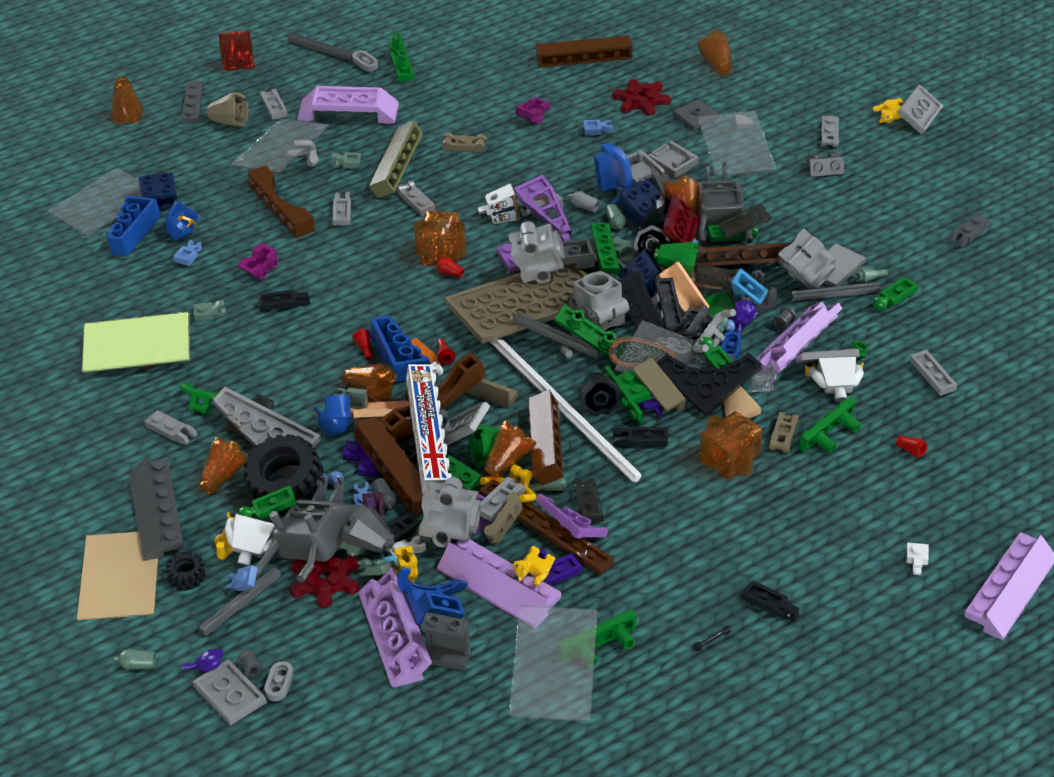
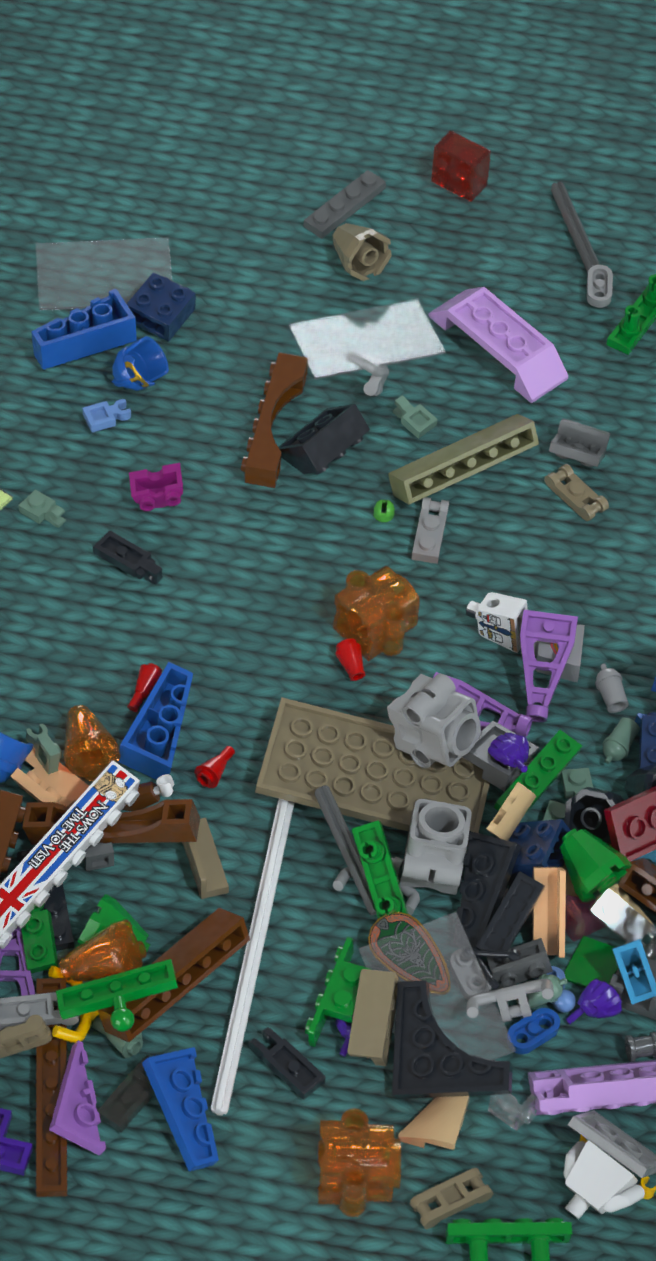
camera: 40 degrees right, 10 degrees up
(125, 102) = (260, 156): clear orange cone -> none
(273, 104) = (425, 273): light grey plate -> none
(316, 192) = (324, 439): none -> black slope
(342, 210) = (330, 482): light grey hinge -> none
(382, 204) = (384, 517): none -> bright green hinge
(425, 351) = (201, 745): orange sticker -> none
(440, 120) = (580, 443): none -> dark grey bracket
(464, 423) = (101, 882): light grey tile -> none
(536, 453) = (116, 991): none -> green plate
(582, 244) = (510, 750): none -> dark purple piece
(599, 394) = (301, 965): black cone -> none
(616, 261) = (511, 812): none -> tan slope
(624, 485) = (180, 1098): none -> blue wing
(715, 356) = (484, 1030): green plate -> none

